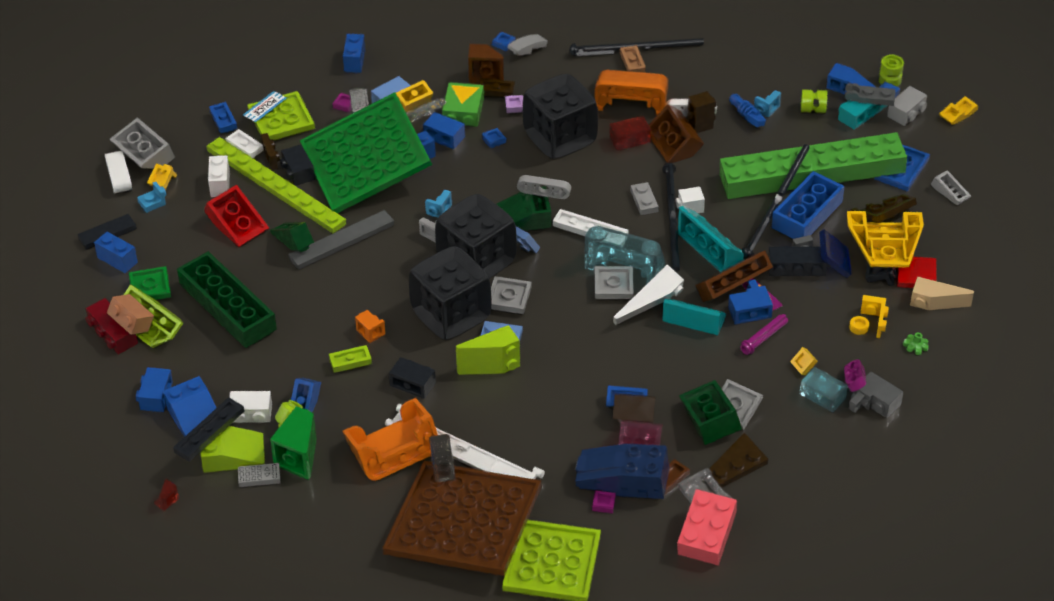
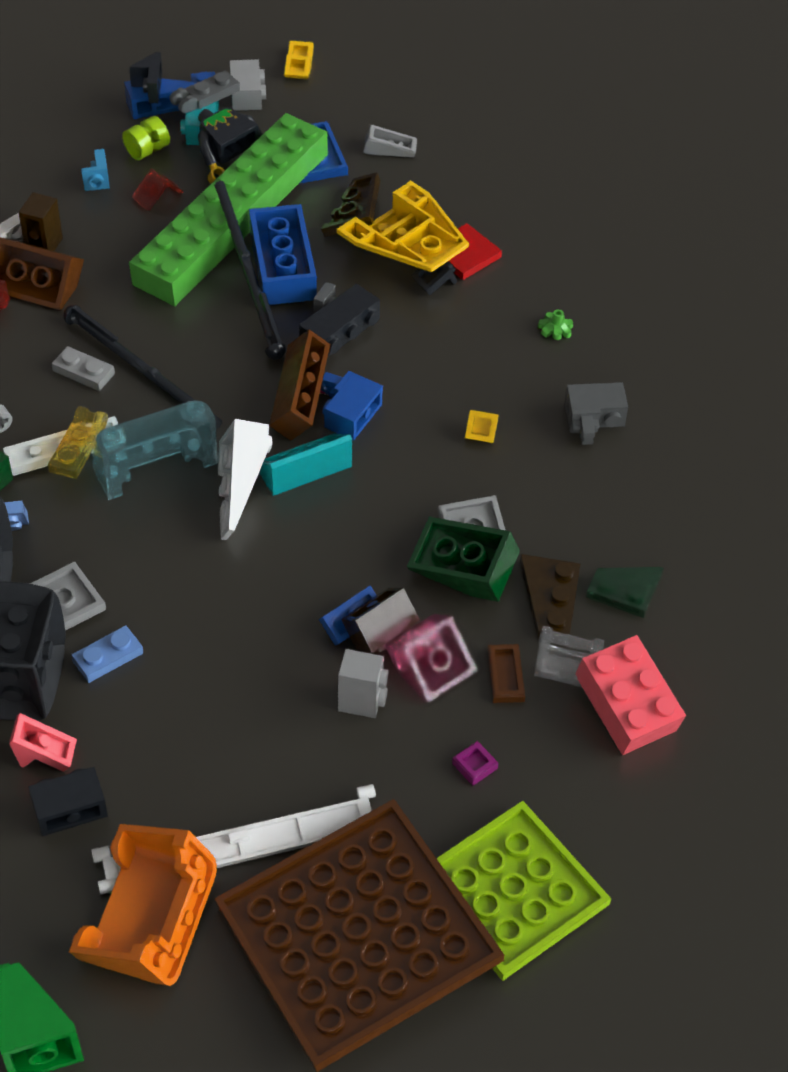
camera: 50 degrees left, 5 degrees up
(427, 345) = (38, 741): none -> coral slope
(442, 458) = (246, 874): clear smoke brick -> none
(489, 353) = (140, 687): lime slope -> none
(578, 233) = (77, 443): none -> clear yellow plate
(588, 425) = (362, 683): none -> light grey brick
(613, 282) = (170, 490): light grey plate -> none
(625, 470) = (464, 703): dark blue piece -> none
(691, 198) = (144, 334): white brick -> none
(707, 240) = (223, 366): teal slope -> none
(747, 111) = (83, 193): blue hinge -> none
(749, 345) = (403, 452): magenta axle -> none
(779, 488) = (625, 588): none -> clear green wing
(788, 128) = (152, 188): none -> clear red bracket
(823, 389) = (539, 441): clear light blue brick -> none
(835, 253) = (371, 285): clear blue tile -> none
(848, 67) = (148, 74): none -> black slope
(852, 124) = (225, 137): none -> black torso
(855, 375) = (563, 407): magenta beam -> none
(859, 325) = (480, 347): yellow tile -> none
(875, 306) = (483, 312): yellow bracket -> none
(891, 70) = (187, 56): lime wheel -> none
(937, 295) = (517, 260): tan slope -> none

